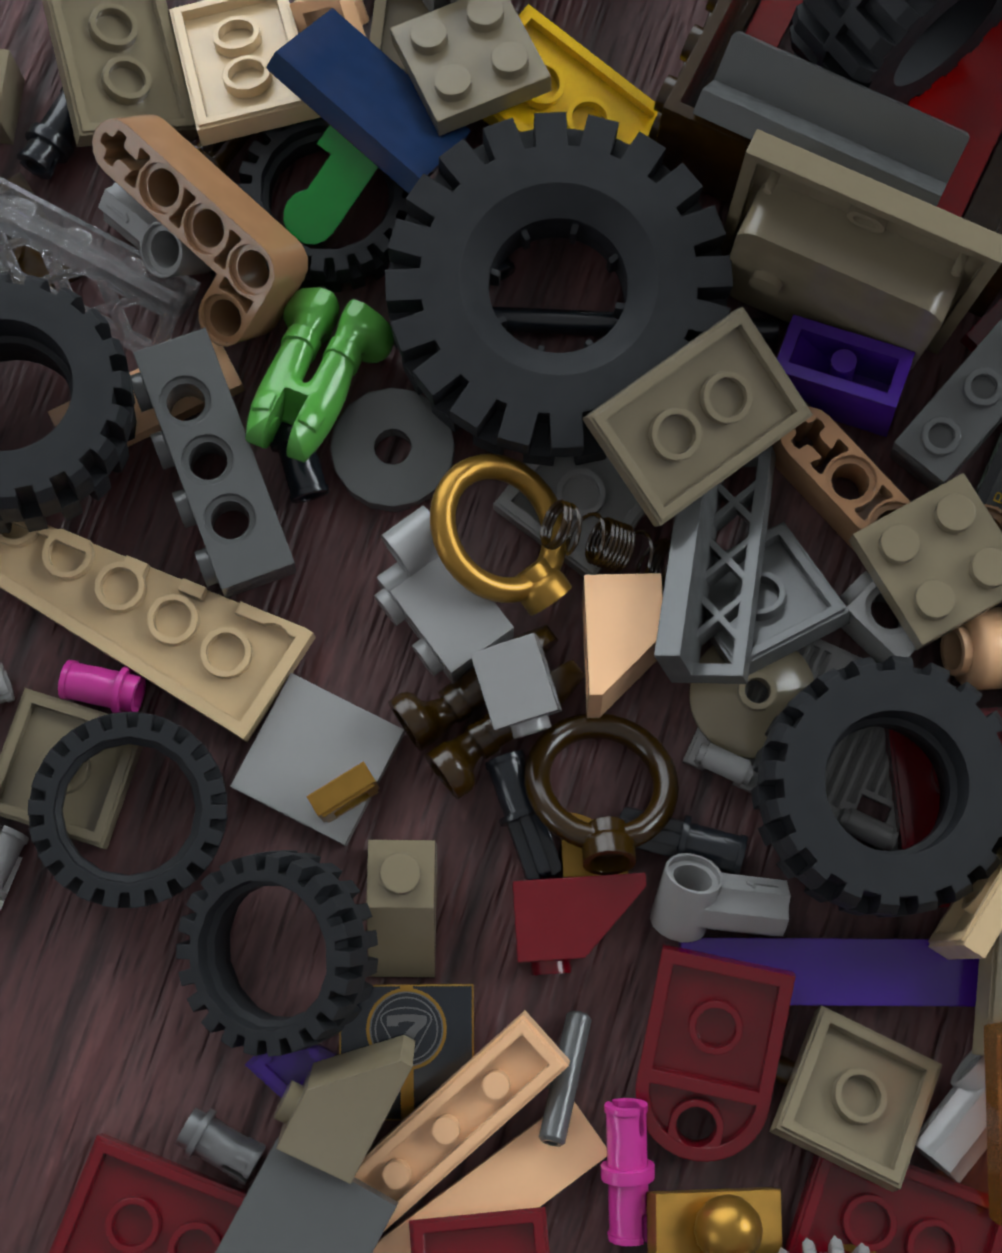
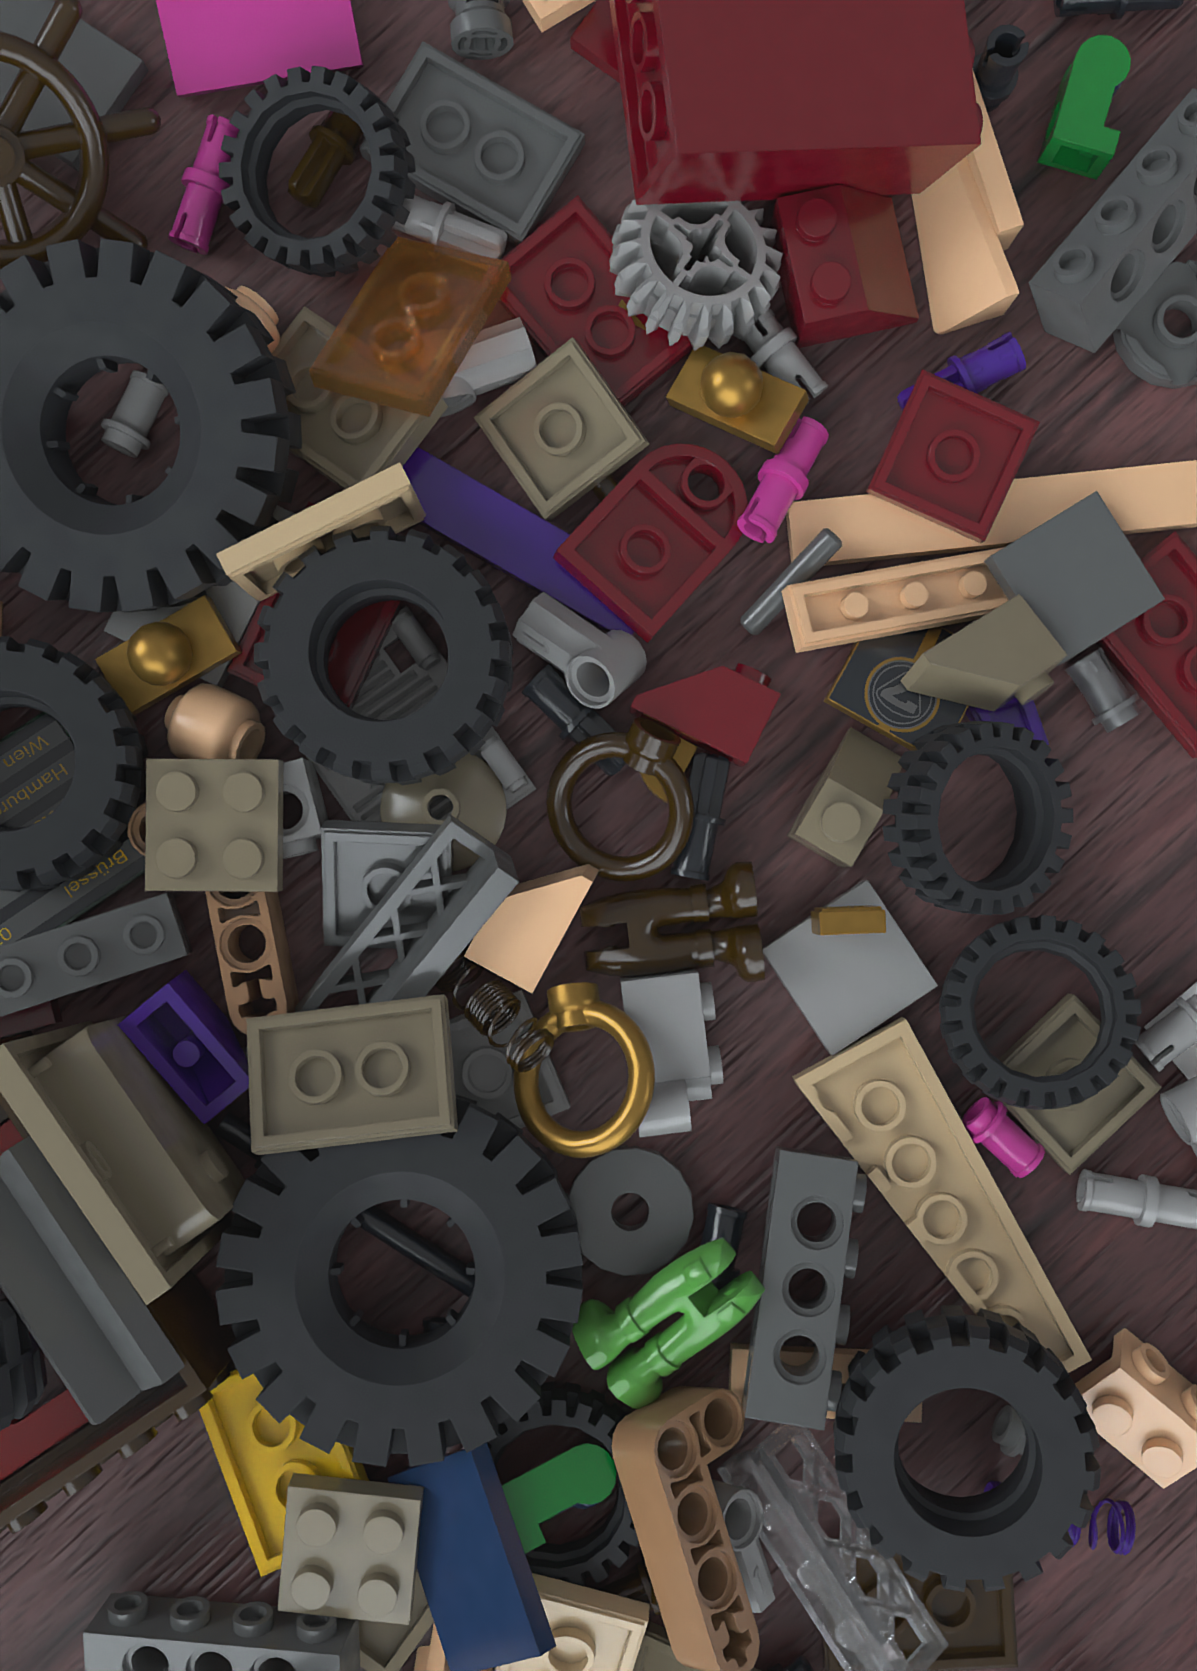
camera: 150 degrees left, 10 degrees up
(517, 685) = (650, 925): light grey brick -> none

